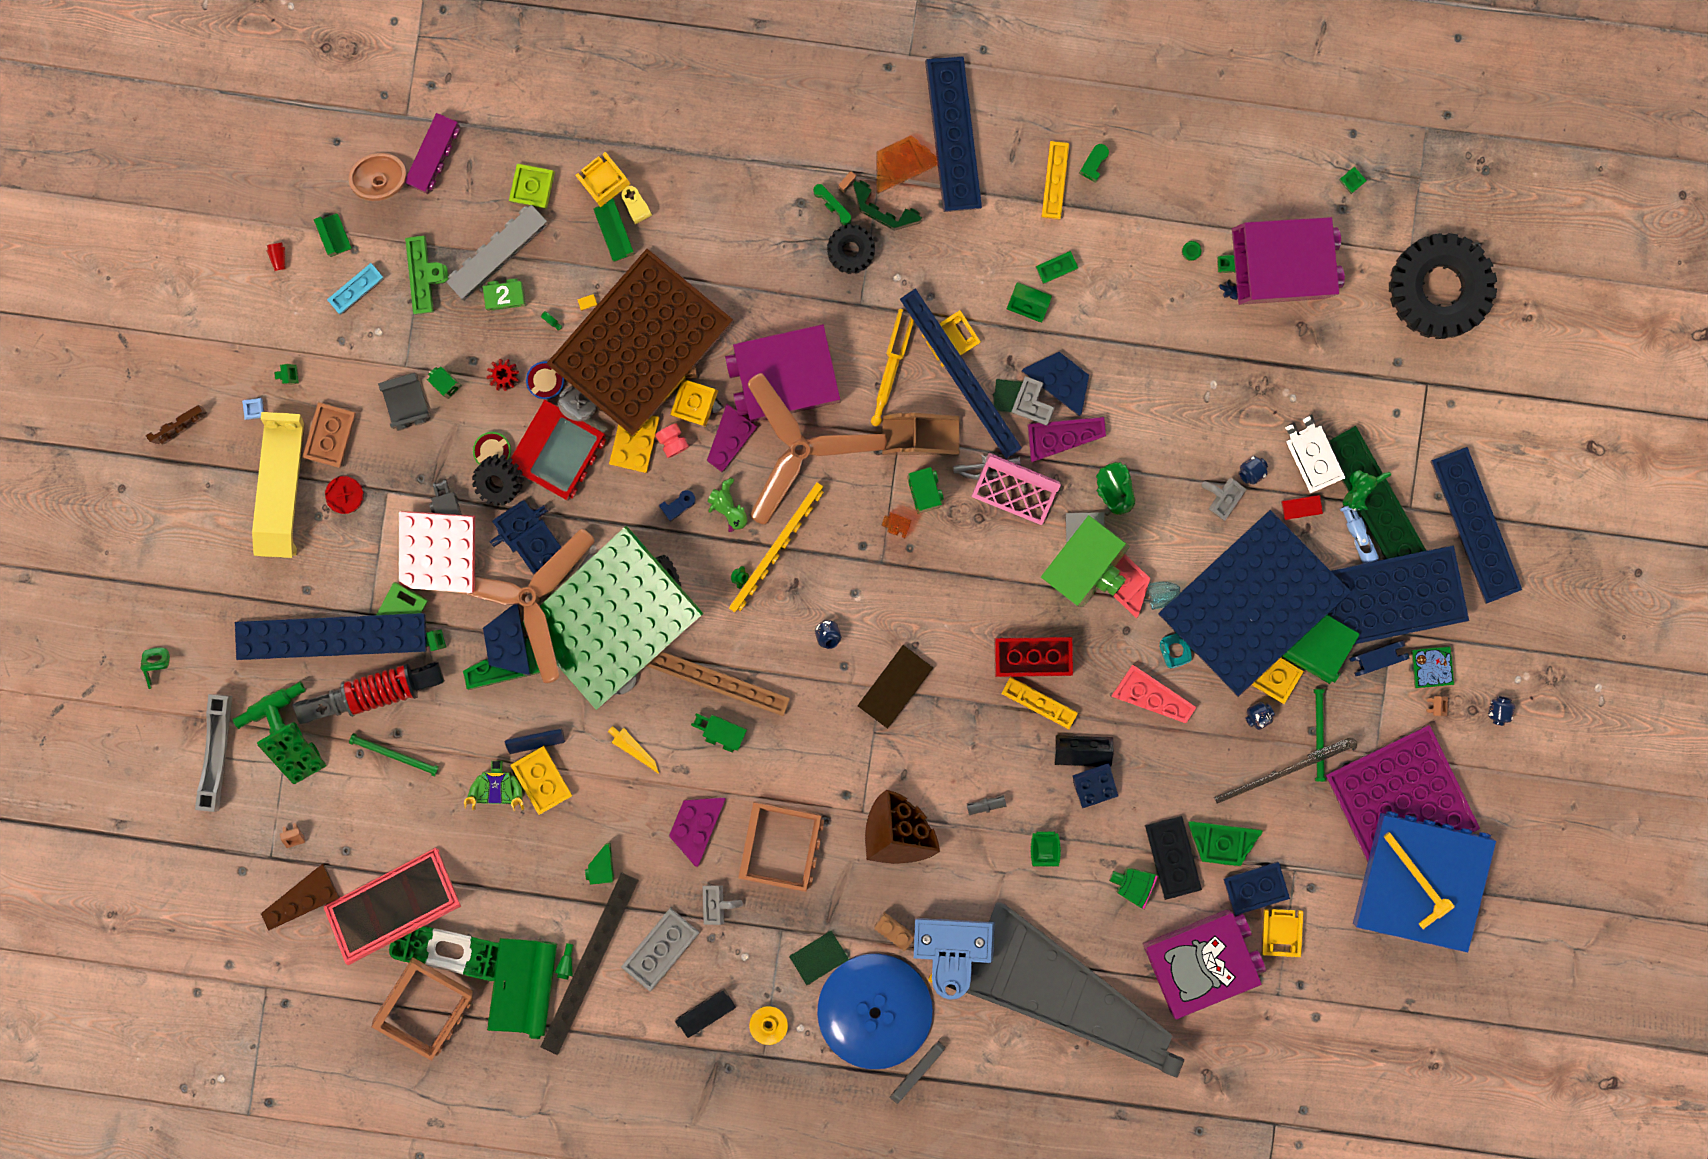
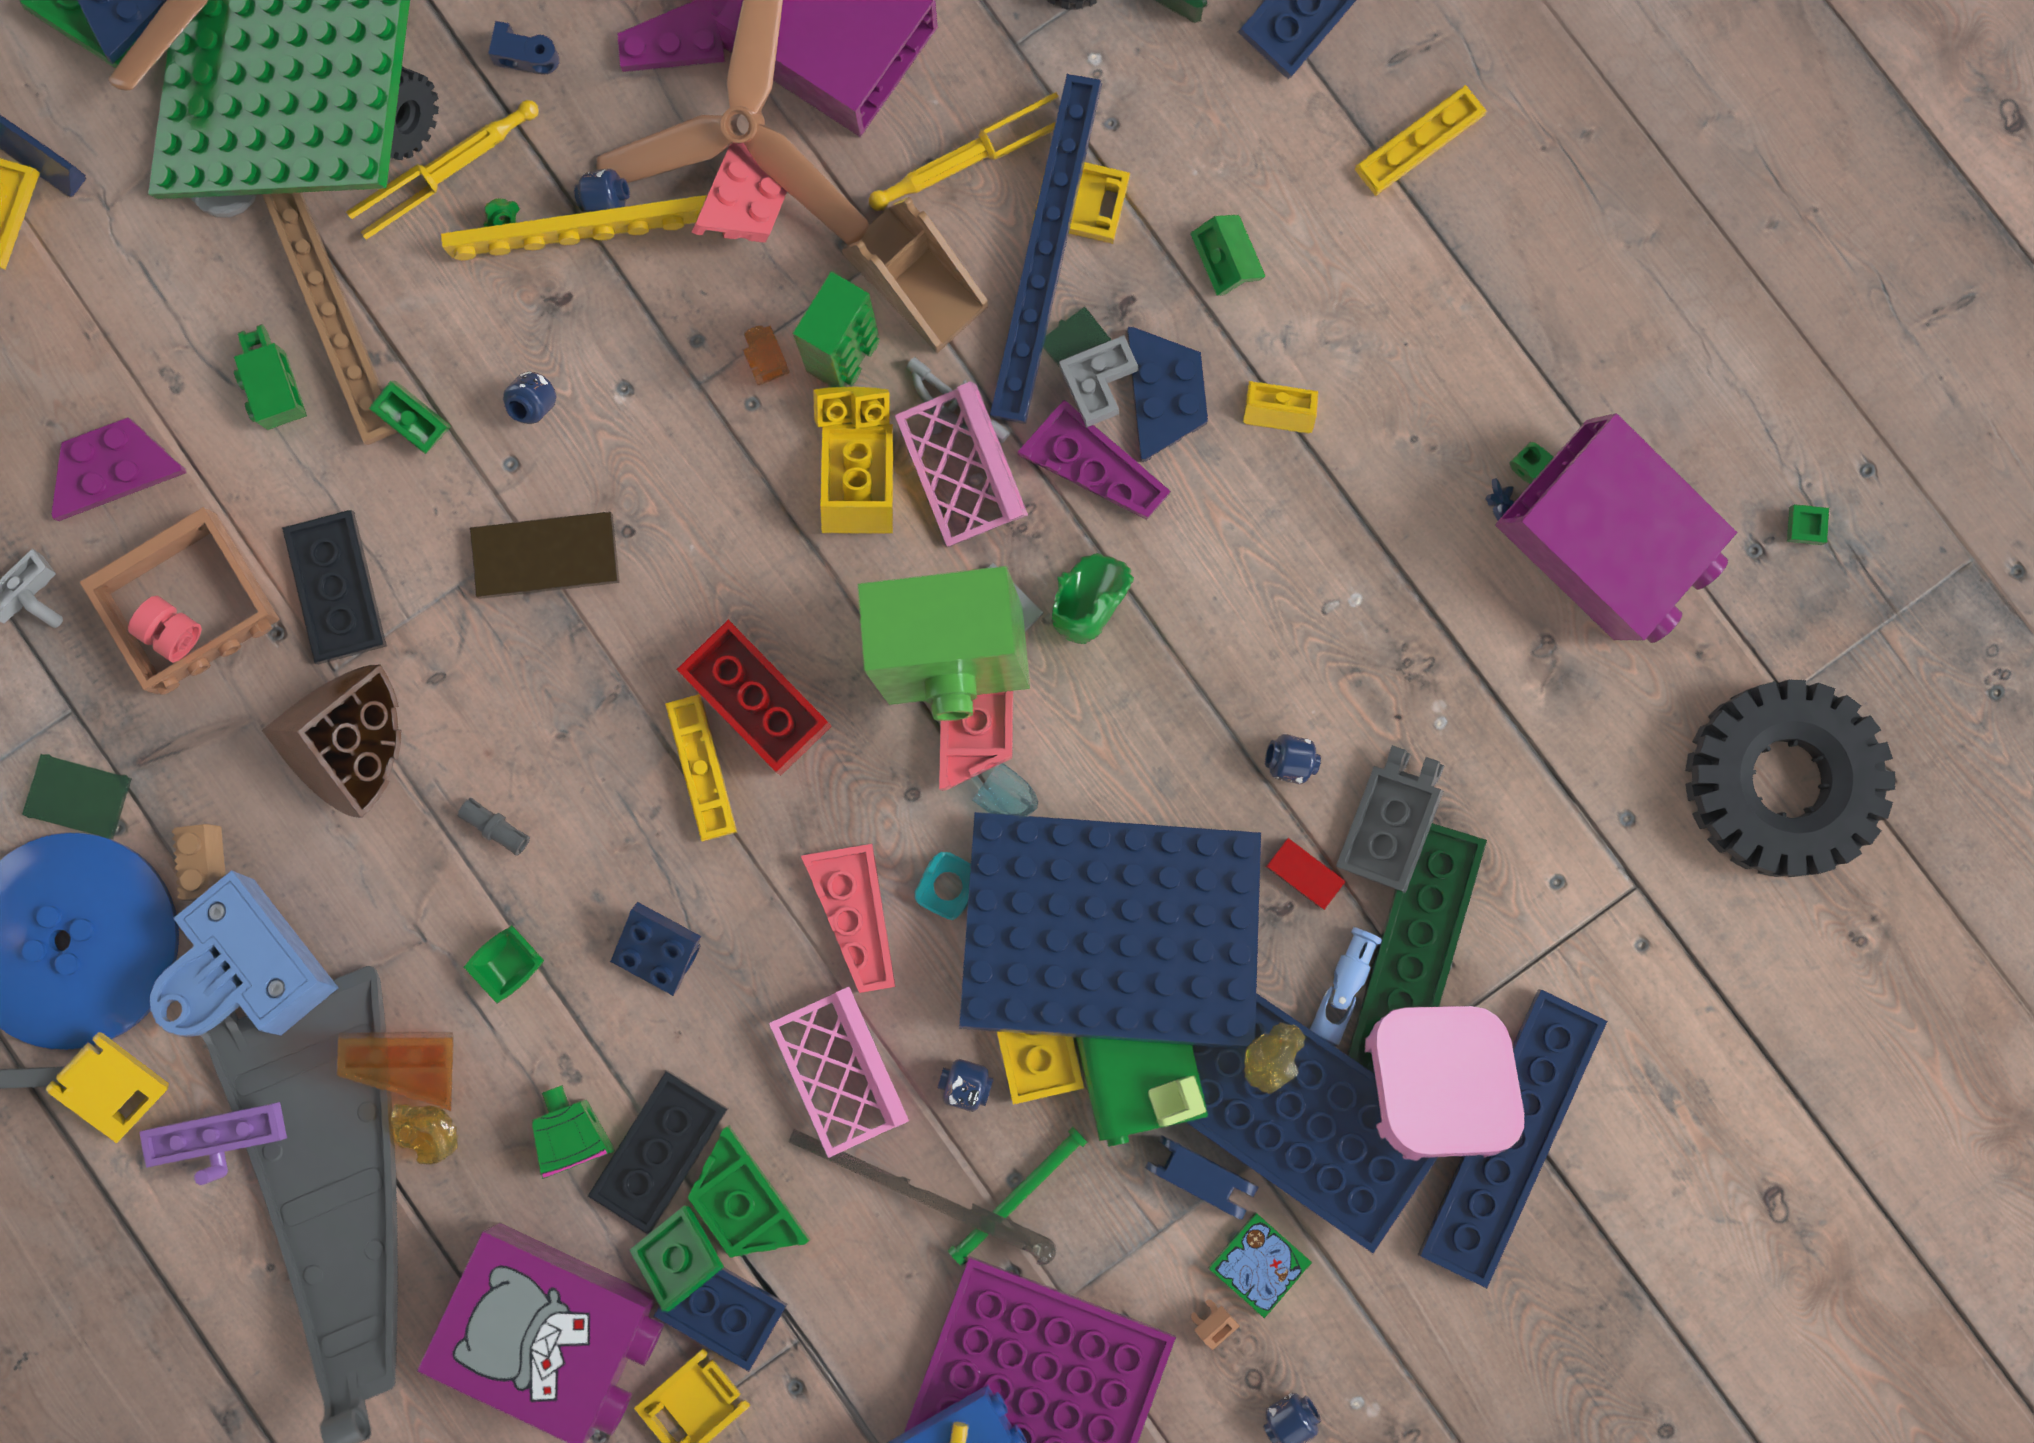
camera: 50 degrees right, 5 degrees down
(628, 744) = (141, 279): yellow bar -> none
(697, 578) = (443, 167): none -> yellow piece
(723, 503) = (579, 103): bright green animal -> none
(769, 528) = (601, 191): none -> dark blue head
(785, 860) = (160, 625): none -> coral wheel
(790, 688) = (409, 416): none -> green slope
(828, 476) = (741, 199): none -> coral wing
(829, 781) = (334, 587): none -> black tile
(948, 1045) = (103, 1082): none -> yellow container
(952, 507) = (851, 404): none -> yellow slope
(981, 534) = (857, 479): none -> yellow slope
(1008, 1021) = (213, 1137): none -> medium lavender plate
(1049, 922) = (400, 1062): none -> clear orange wedge
(1056, 267) = (1308, 246): green plate -> none
(1082, 938) = (424, 1130): none -> clear yellow hair
(1083, 750) = (691, 888): black panel -> none
(1096, 157) = (1494, 163): green leg -> none
(1110, 340) = (1280, 407): none -> yellow slope
(1191, 251) = (1503, 402): green tile -> none
(1213, 742) = (868, 1058): none -> bright pink fence
(1221, 886) = (676, 1258): none -> green tile
(1226, 498) = (1220, 757): light grey plate -> none
(1343, 640) = (1176, 1101): none -> yellowish green panel
(1361, 589) = (1271, 1057): none -> clear yellow hair
(1362, 485) = (1415, 925): green animal -> none
(1432, 531) = (1446, 1082): none -> bright pink tile

